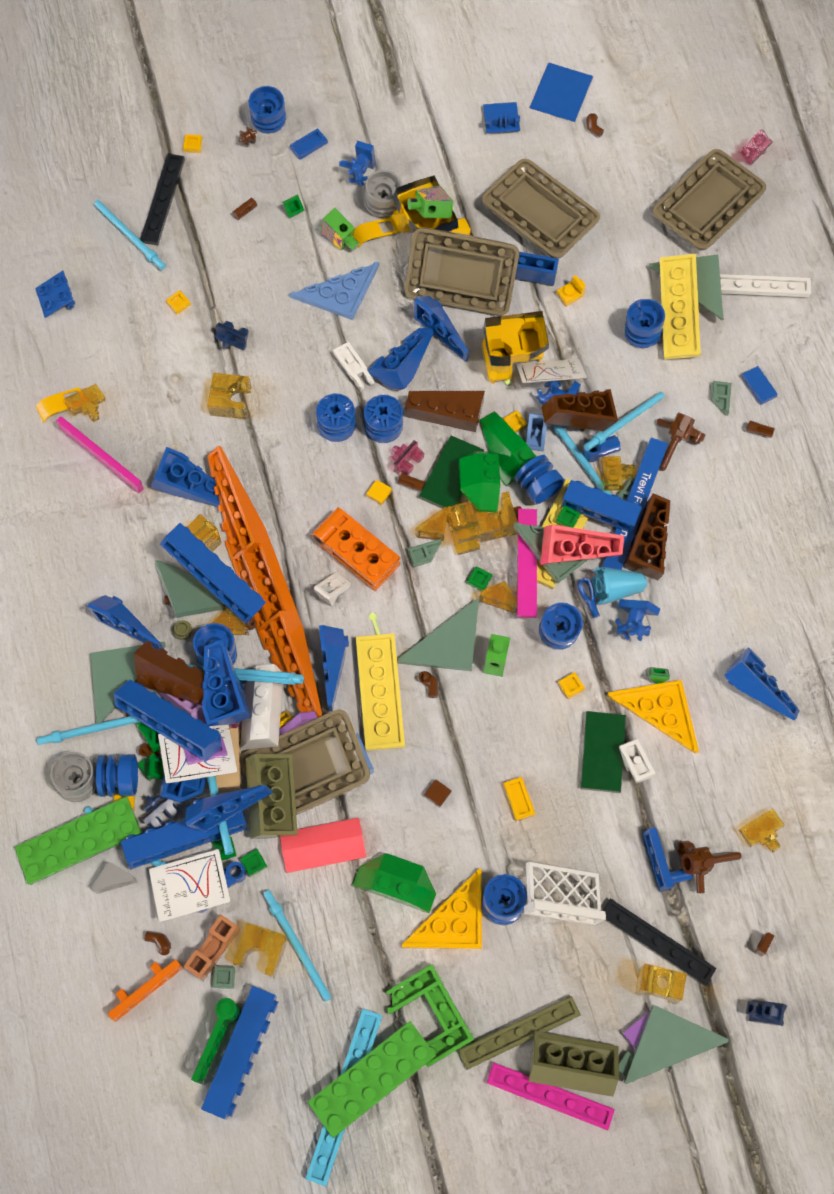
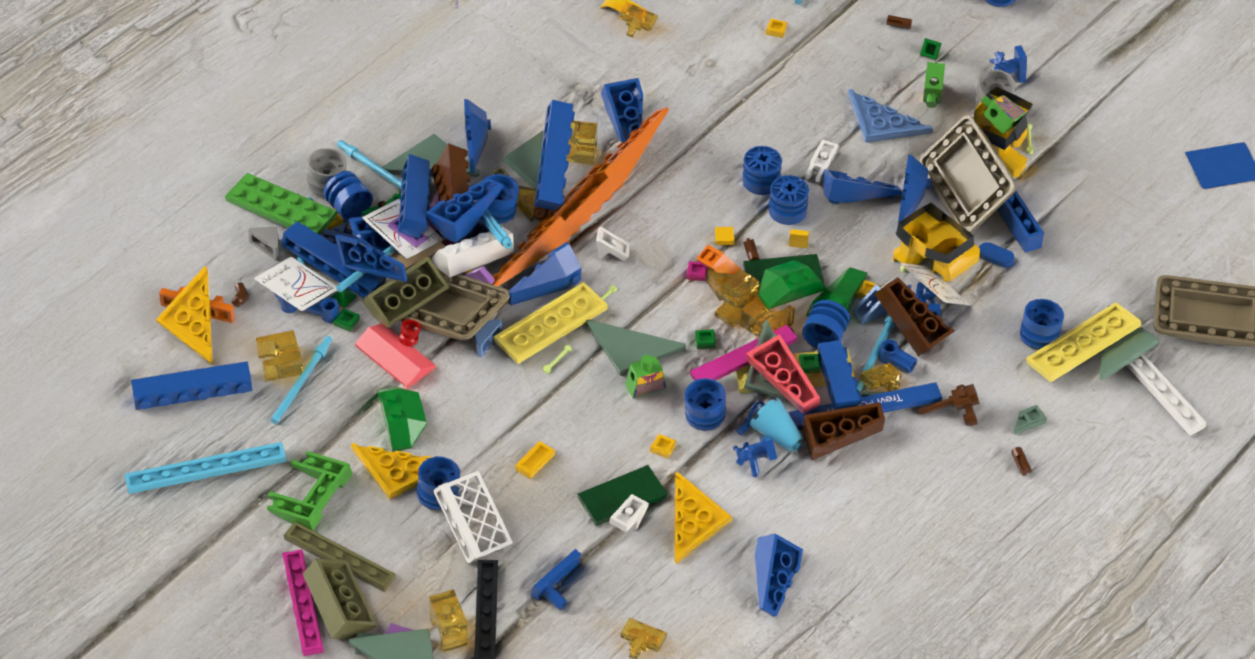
camera: 55 degrees right, 20 degrees down
(100, 454) = (600, 53): dark pink tile -> none
(159, 1007) = (190, 317): none -> yellow tile
(210, 952) = (244, 326): nougat arch -> none
(222, 390) = (720, 92): clear yellow piece -> none
(224, 977) = (242, 349): sand green tile -> none
(228, 1012) = (213, 355): green piece -> none
(231, 336) = (776, 73): dark blue hips -> none
(308, 144) = (1000, 29): blue tile -> none
(316, 815) = (409, 332): none -> red wheel
(342, 526) = (659, 245): orange hinge -> none
(371, 1079) = (230, 473): bright green plate -> none
(372, 230) = (955, 107): yellow piece -> none
(401, 538) = (696, 271): none -> dark pink tile
(404, 454) = (769, 233): clear pink hips -> none
(416, 518) = (717, 261): none -> orange tile
(423, 553) = (696, 292): sand green tile -> none
(425, 726) = (547, 368): none -> yellowish green hinge
(426, 438) = (798, 238): none -> yellow tile
(431, 682) = (586, 353): reddish brown arm -> none
(437, 793) = (496, 404): reddish brown tile -> none
(446, 408) = (839, 238): reddish brown wedge -> none
(499, 597) = (698, 352): clear yellow slope -> none
(501, 117) = (1153, 136): blue hinge -> none
(540, 208) = (1085, 201): dark tan wedge -> none
(547, 303) = (996, 255): none -> blue tile
(572, 291) = (1029, 267): yellow bracket -> none
(592, 126) = (1209, 199): reddish brown arm -> none
(601, 437) = (898, 343): medium azure bar -> none
(659, 675) = (722, 498): green slope -> none
(701, 861) = (576, 598): reddish brown piece -> none
(759, 385) = (1064, 440): blue tile -> none

